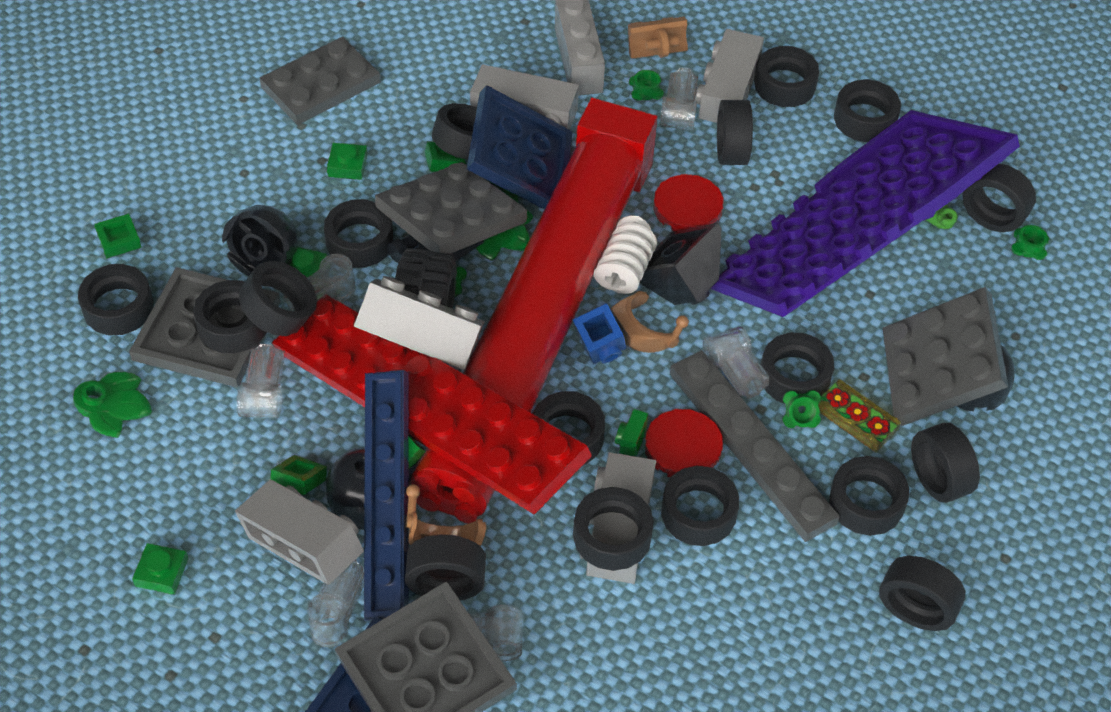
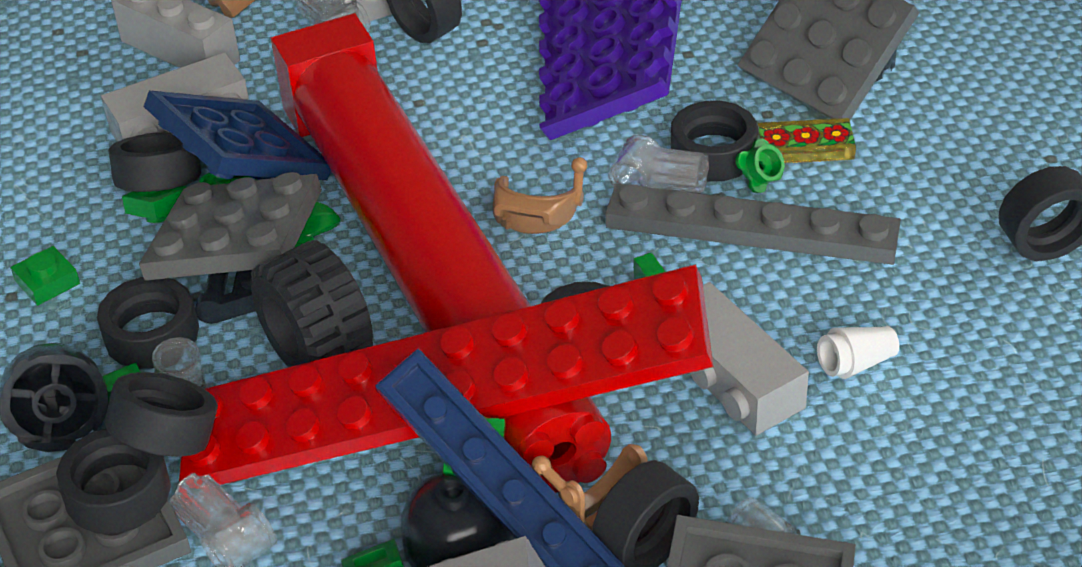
camera: 40 degrees left, 10 degrees down
(419, 322) = (356, 313): brick -> none
(600, 335) = (519, 227): blue brick -> none
(617, 501) = (755, 382): black tyre -> none
(626, 255) = (459, 150): white piece -> none
(646, 85) = (279, 21): green plate -> none
(682, 441) = (714, 252): red tile -> none
(685, 265) = (510, 129): black slope -> none
(688, 202) = (444, 88): red tile -> none
(699, 575) = (855, 349): none -> white cone
(700, 479) = (790, 271): black tyre -> none
(876, 471) = (903, 164): black tyre -> none
(945, 462) = (940, 85): black tyre -> none

